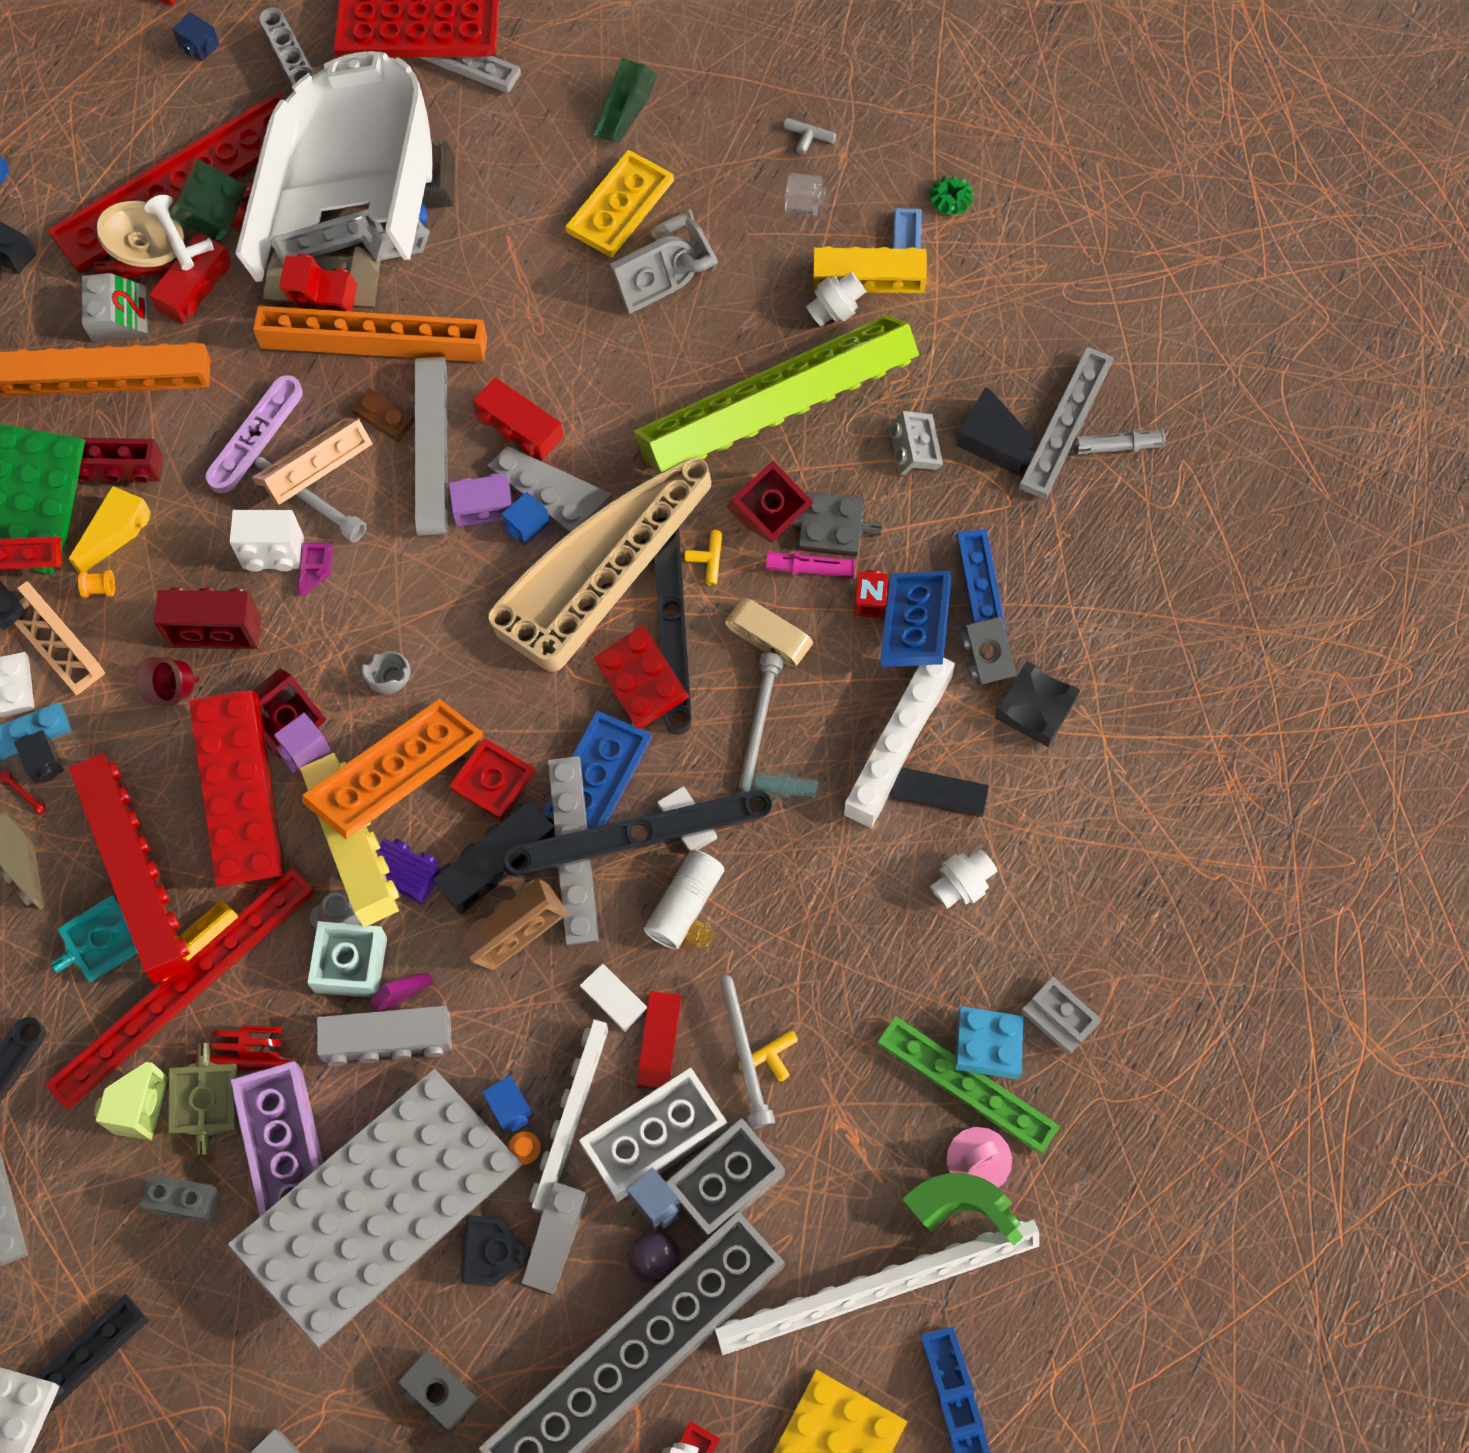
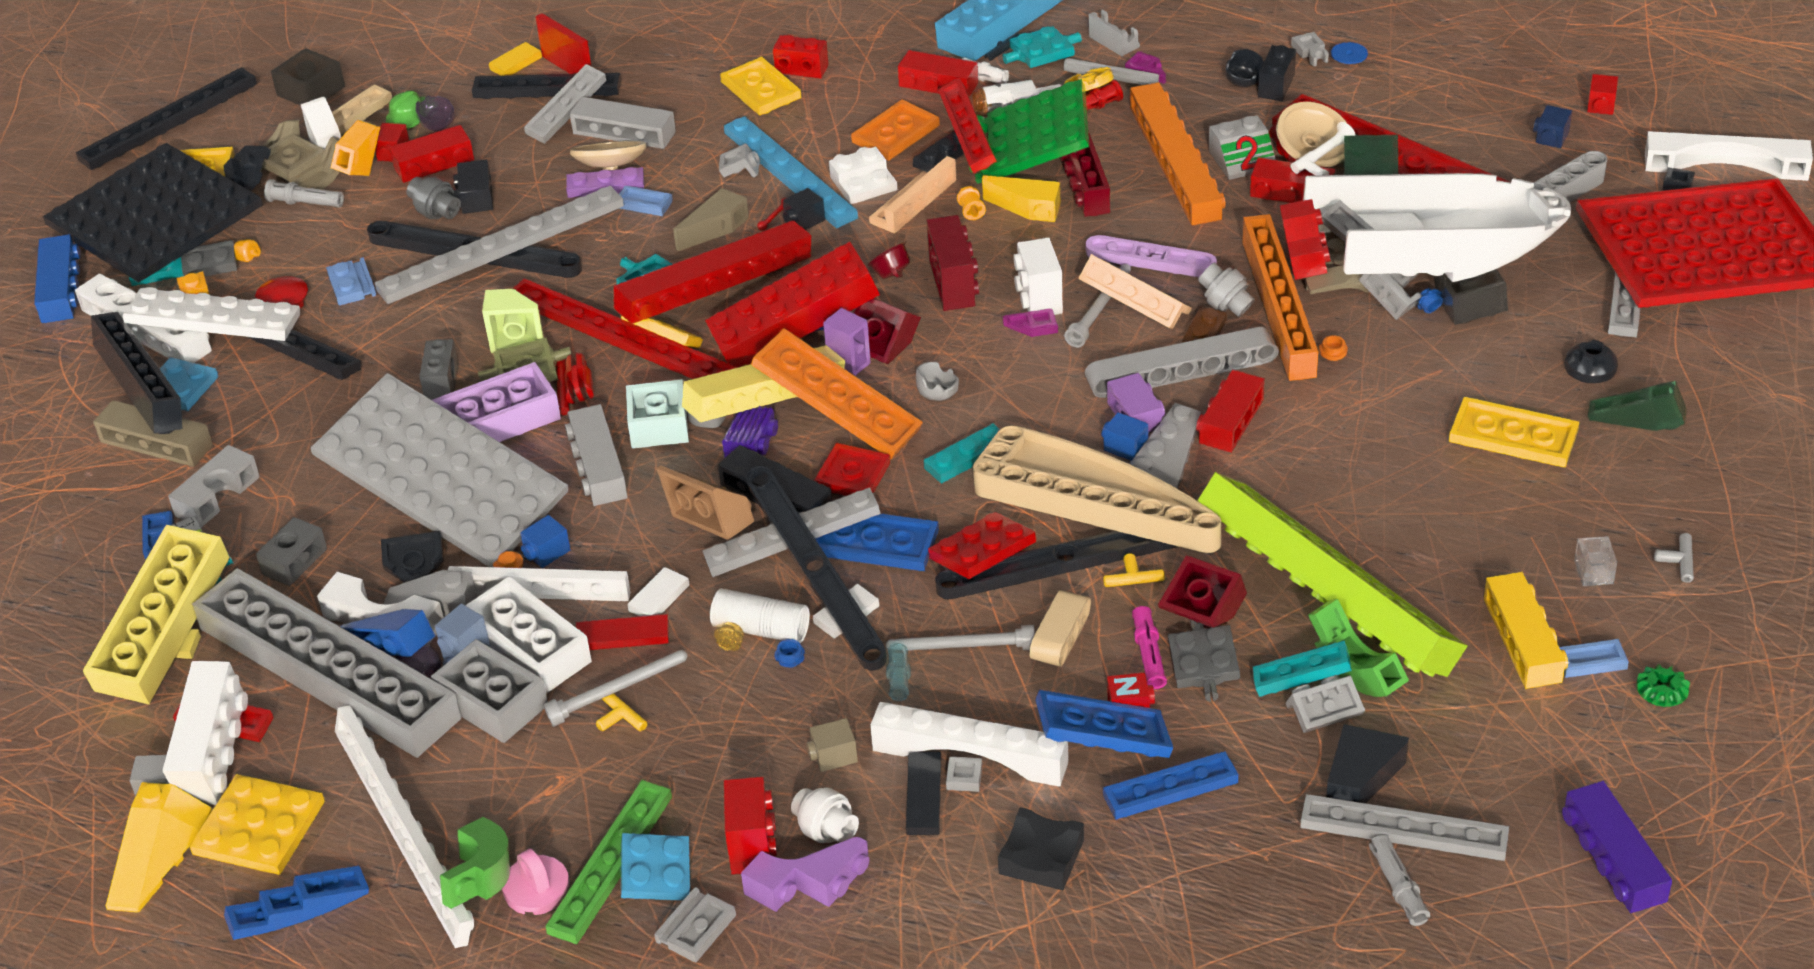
camera: 80 degrees right, 25 degrees down
(345, 377) = (1226, 289): none -> light grey piece
(398, 991) = (637, 455): magenta tile -> none
(454, 309) = (1333, 348): none -> orange plate
(494, 667) = (960, 455): none -> teal plate
(539, 1328) = (346, 602): none -> white arch
(542, 126) = (1590, 367): none -> black piece
(625, 1272) = (394, 632): none -> blue slope
(663, 264) = (1448, 467): light grey plate -> none
(731, 874) = (789, 653): none -> blue plate
(836, 299) = (1469, 603): white piece -> none
(870, 859) = (832, 745): none -> dark tan brick
(879, 403) = (1371, 671): none -> bright green arch
(880, 447) = (1301, 668): none -> teal plate
(930, 751) = (964, 774): none -> light grey plate
(969, 946) = (748, 821): none -> red brick
(1001, 663) = (1088, 791): dark grey brick -> none
(1028, 894) = (819, 875): none -> medium lavender arch
(1120, 280) = (1617, 847): none -> dark purple brick

